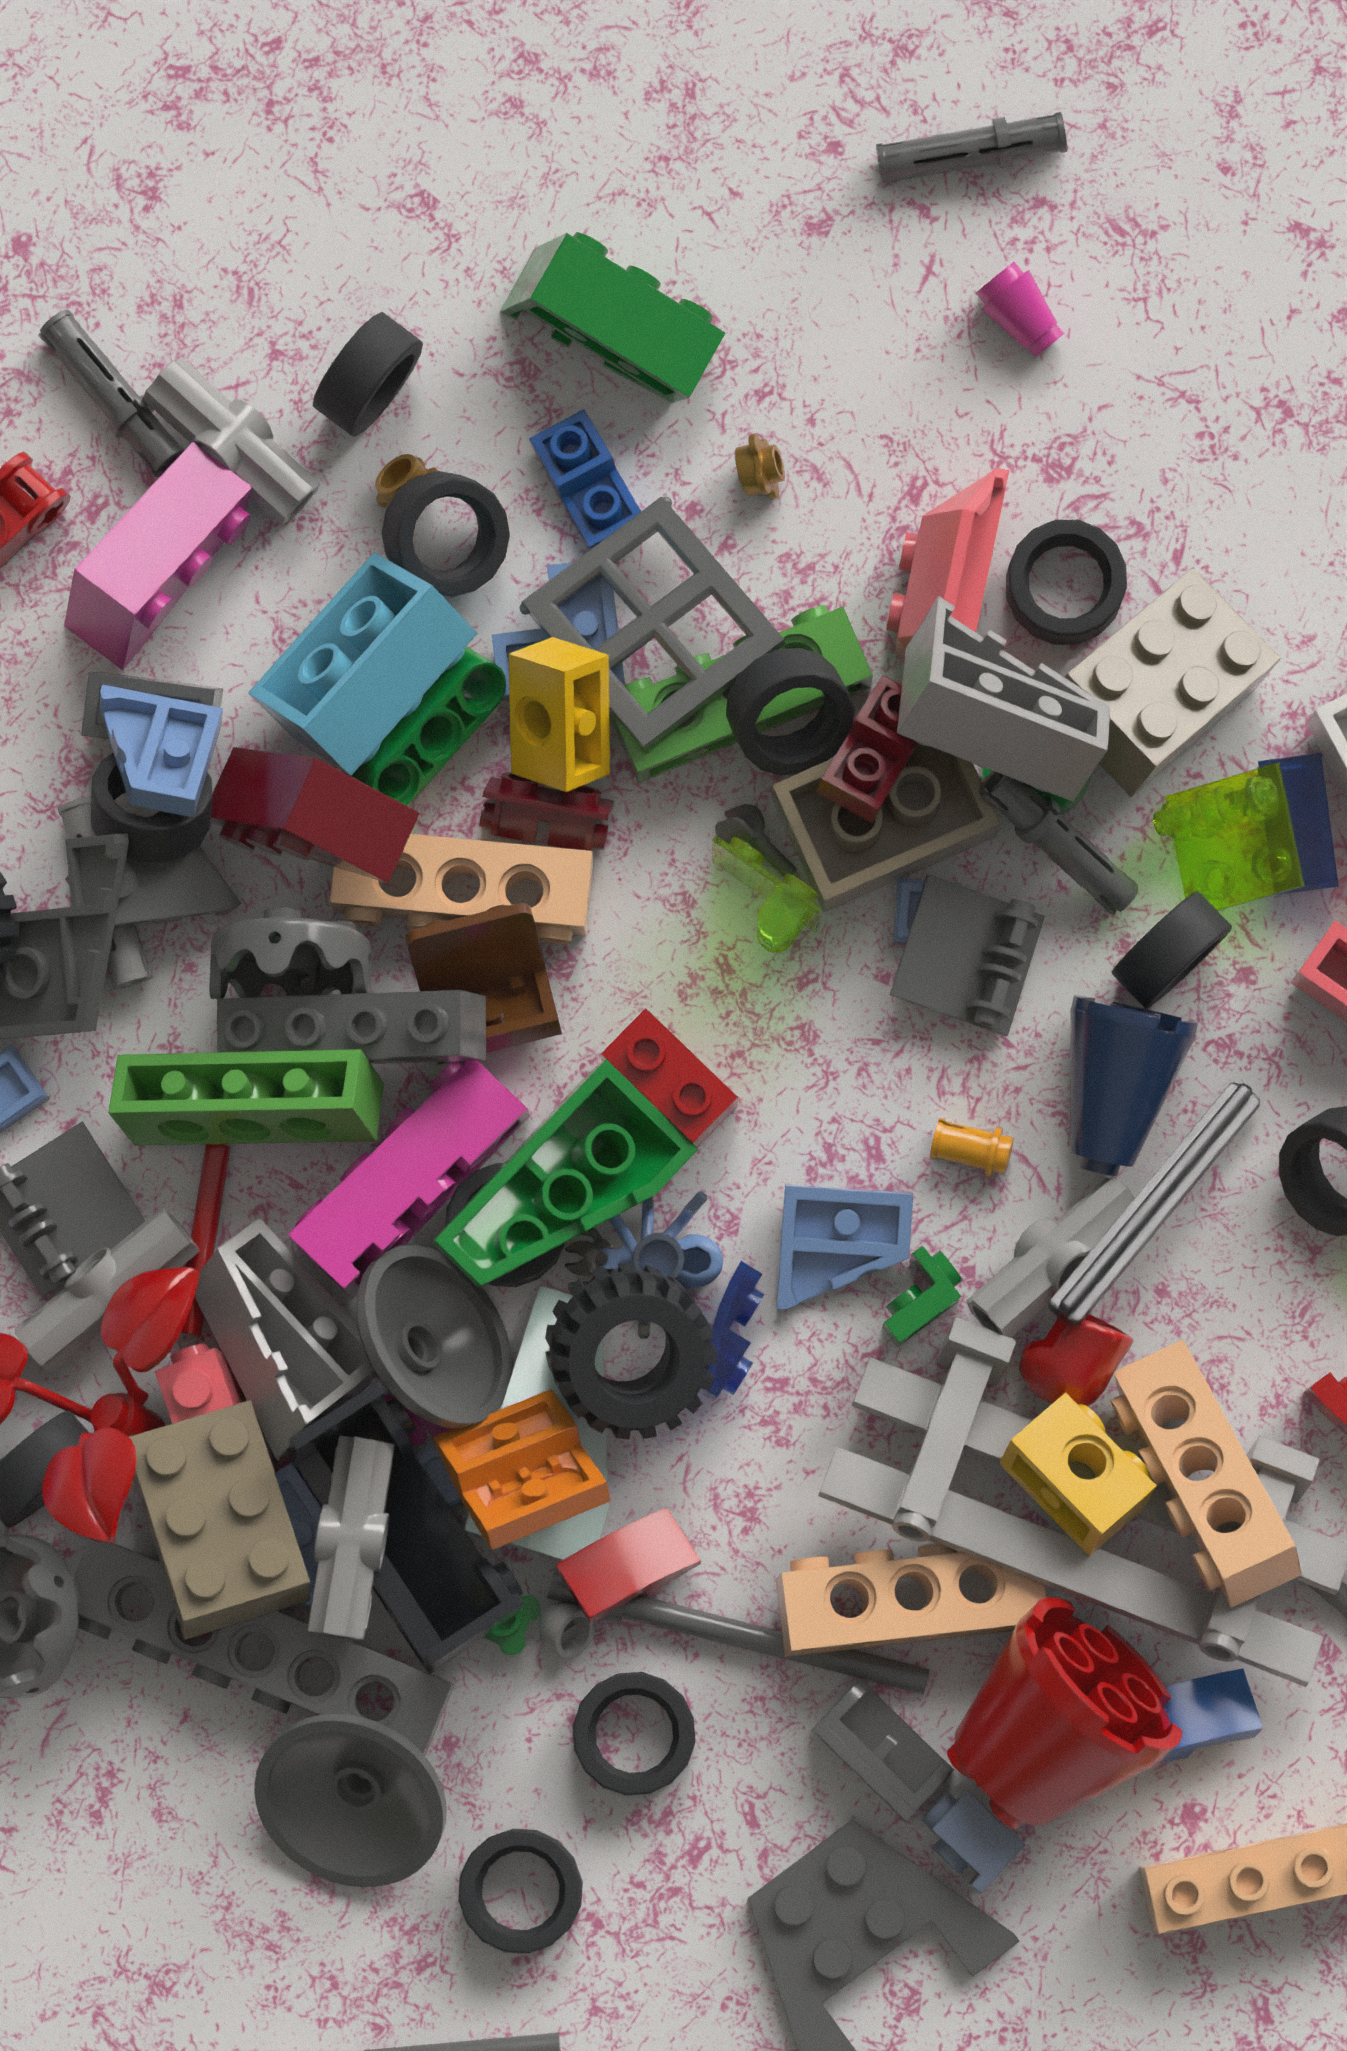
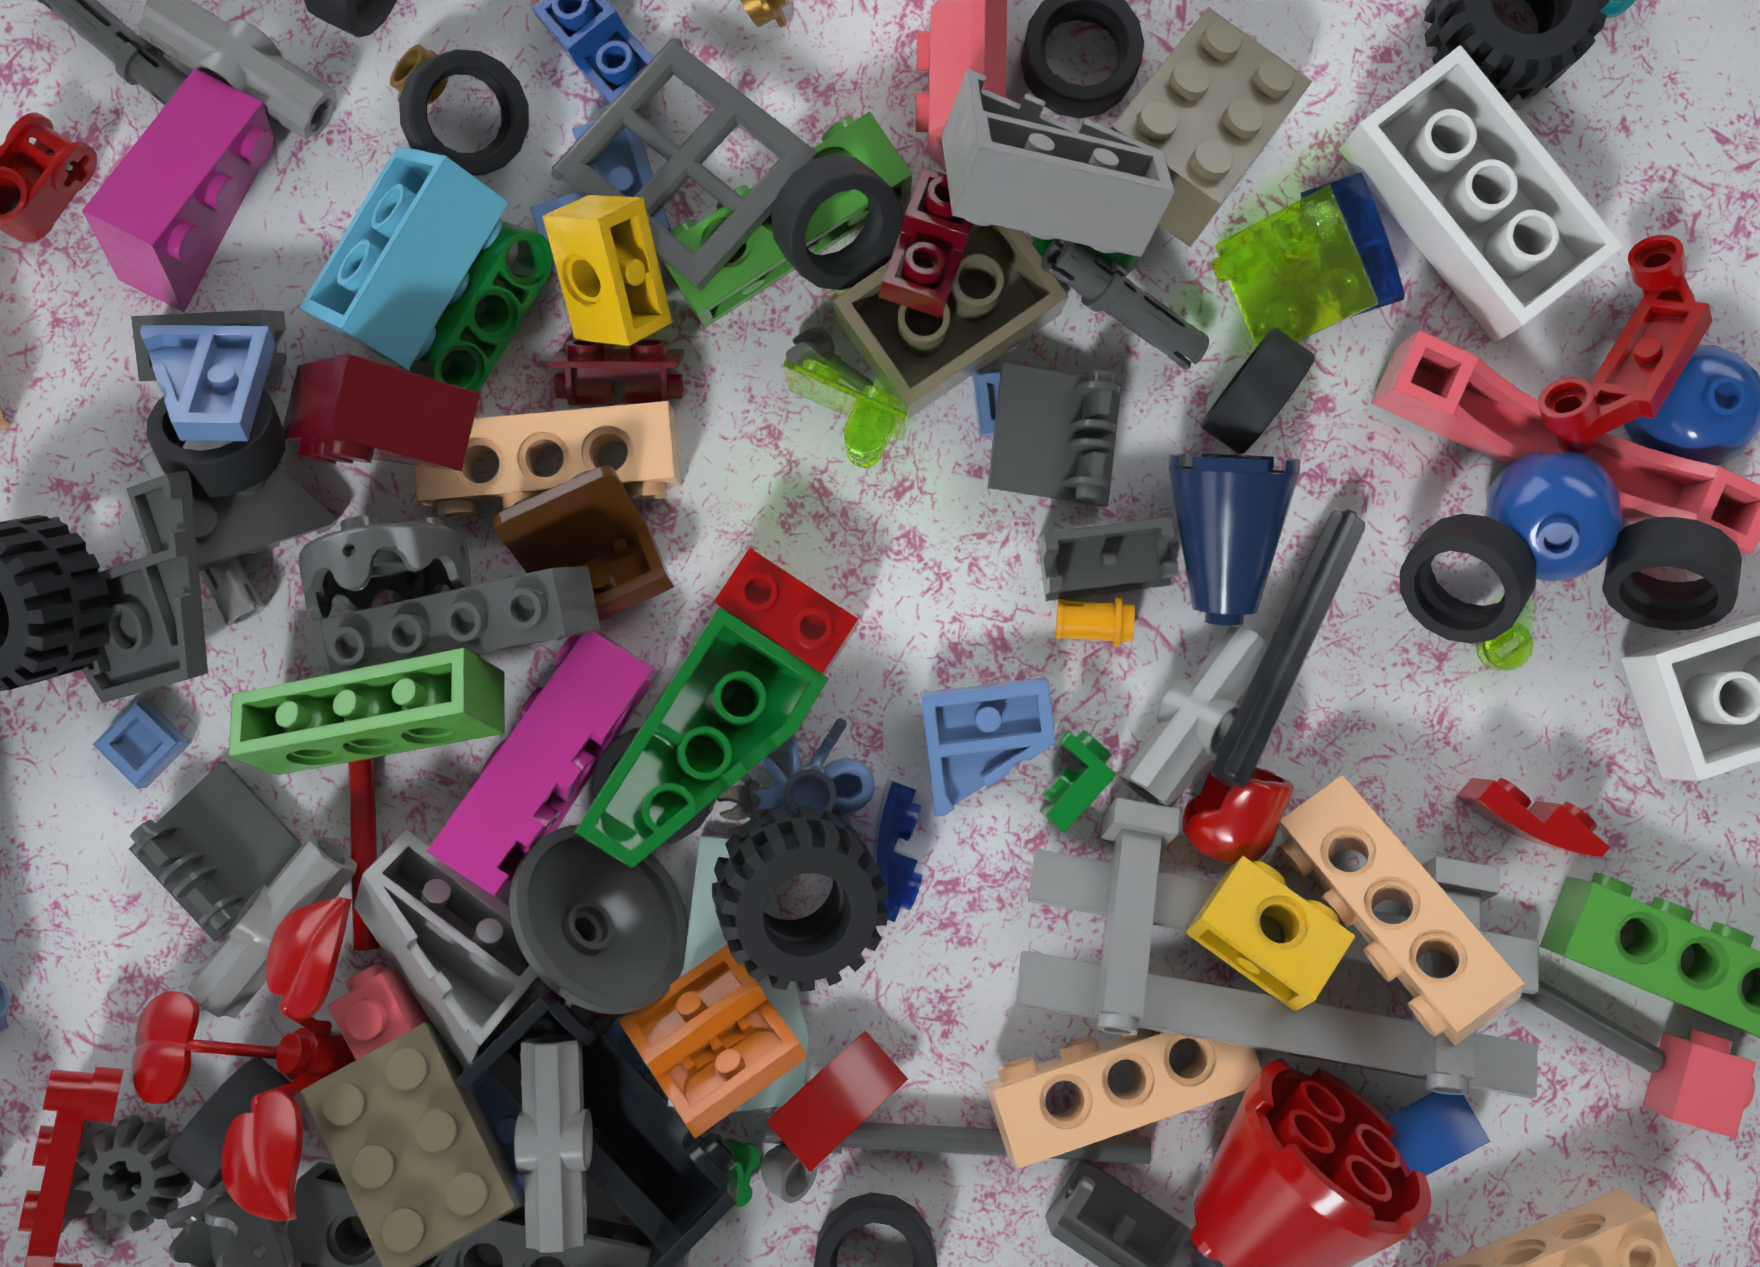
camera: 15 degrees left, 5 degrees up
(995, 1087) = (1107, 558): none -> dark grey hinge

